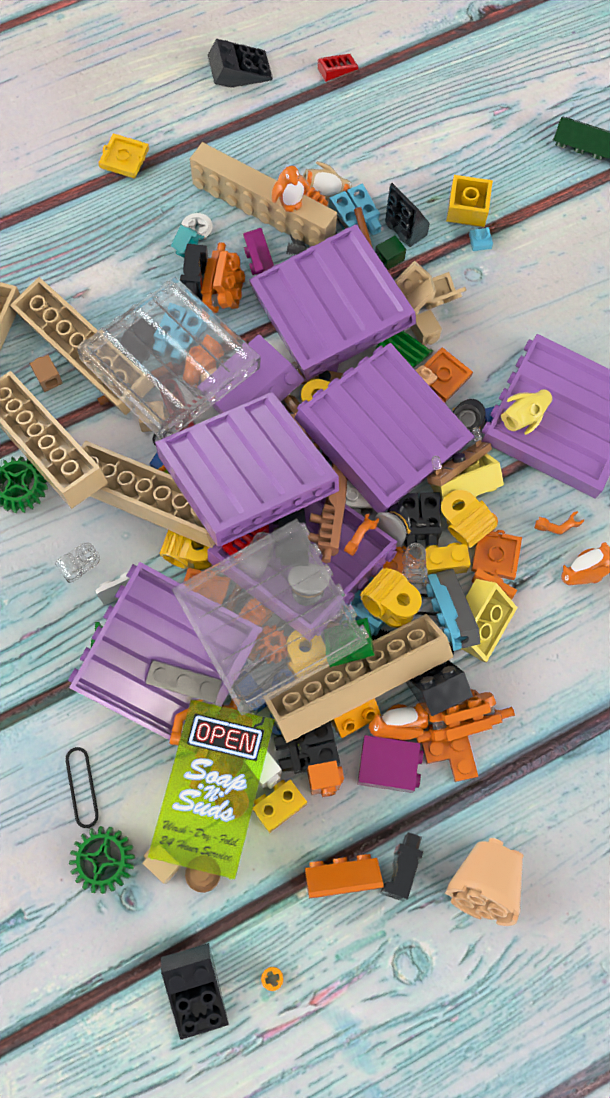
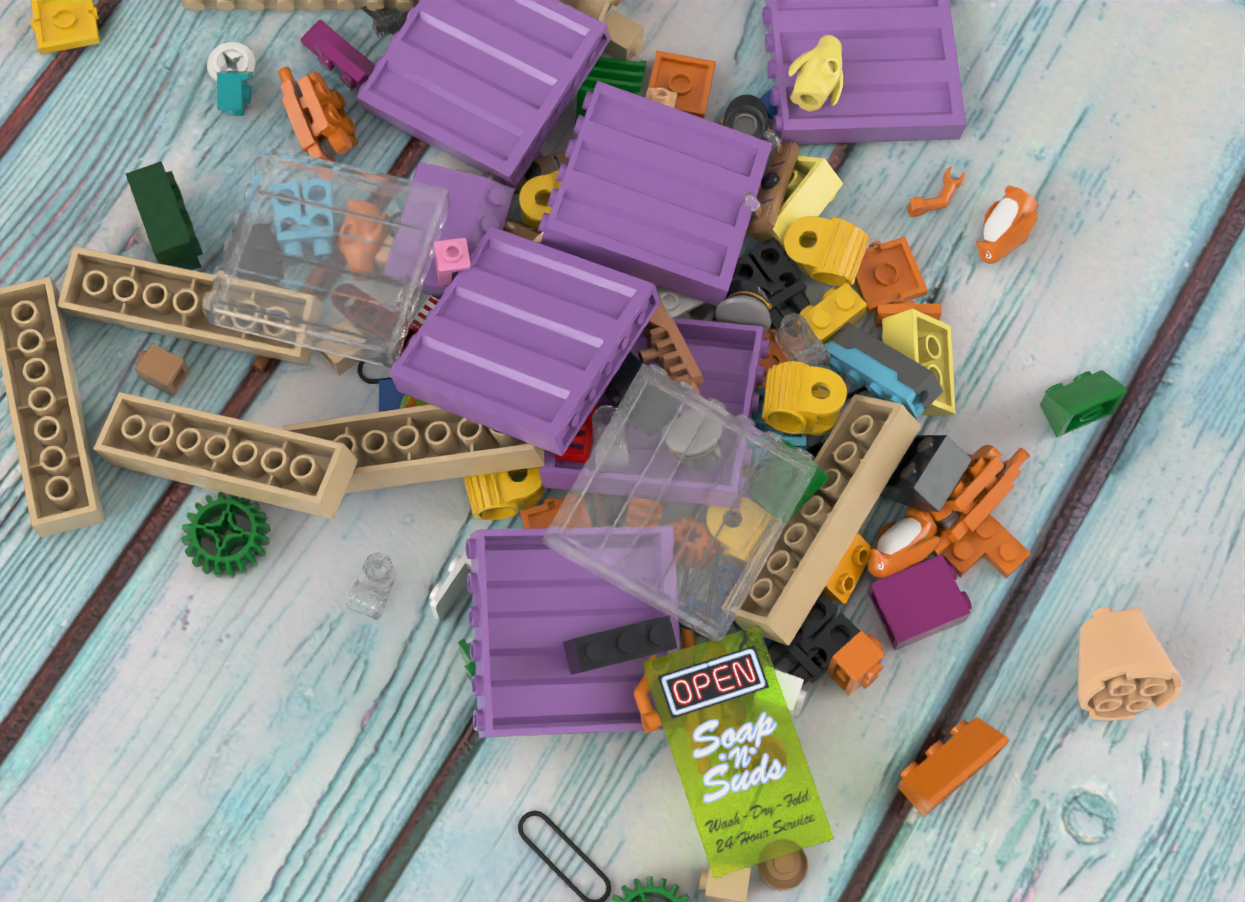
camera: 30 degrees left, 0 degrees up
(100, 289) = (165, 217): none -> dark green brick
(194, 267) = (272, 119): black hips -> none
(236, 397) = (449, 258): none -> bright pink bracket
(279, 805) = (823, 727): yellow brick -> none
(353, 544) = (715, 328): orange arm -> none
(404, 868) = (1015, 709): black hips -> none
(569, 701) = (1081, 401): none -> green slope

